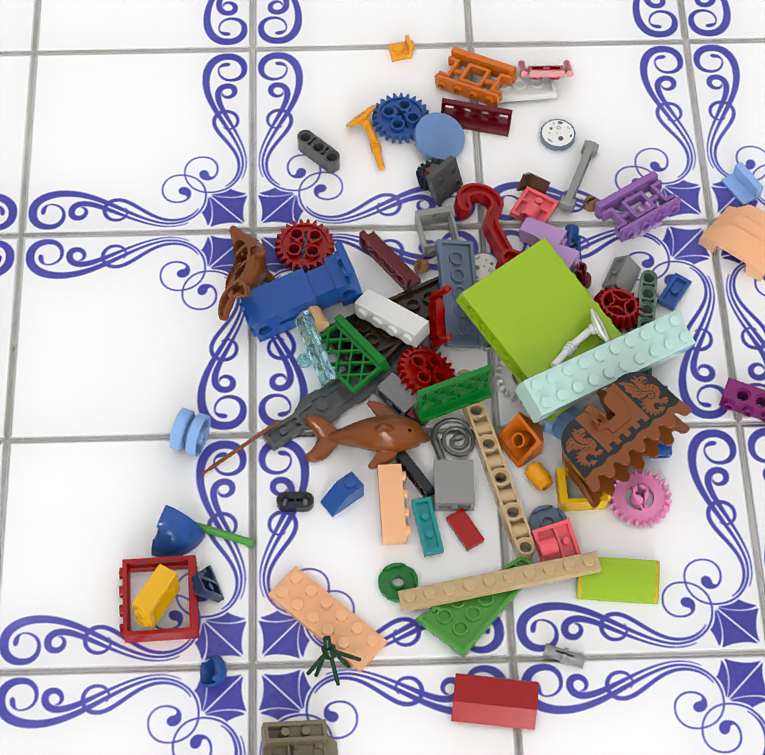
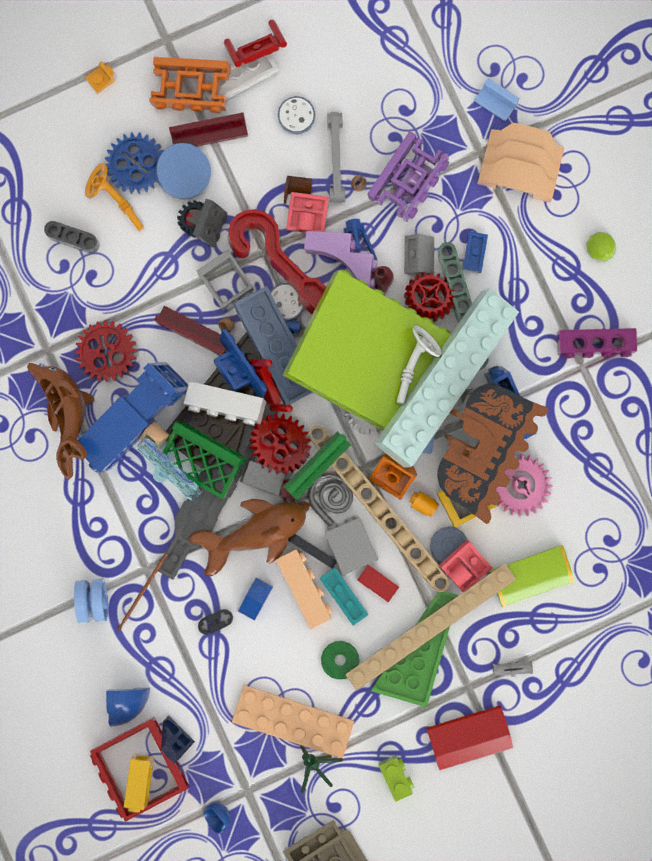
camera: 20 degrees left, 25 degrees up
(227, 535) = (158, 681): bright green bar -> none
(404, 707) = (395, 778): none -> lime brick
(415, 294) = (236, 368): none -> blue bracket

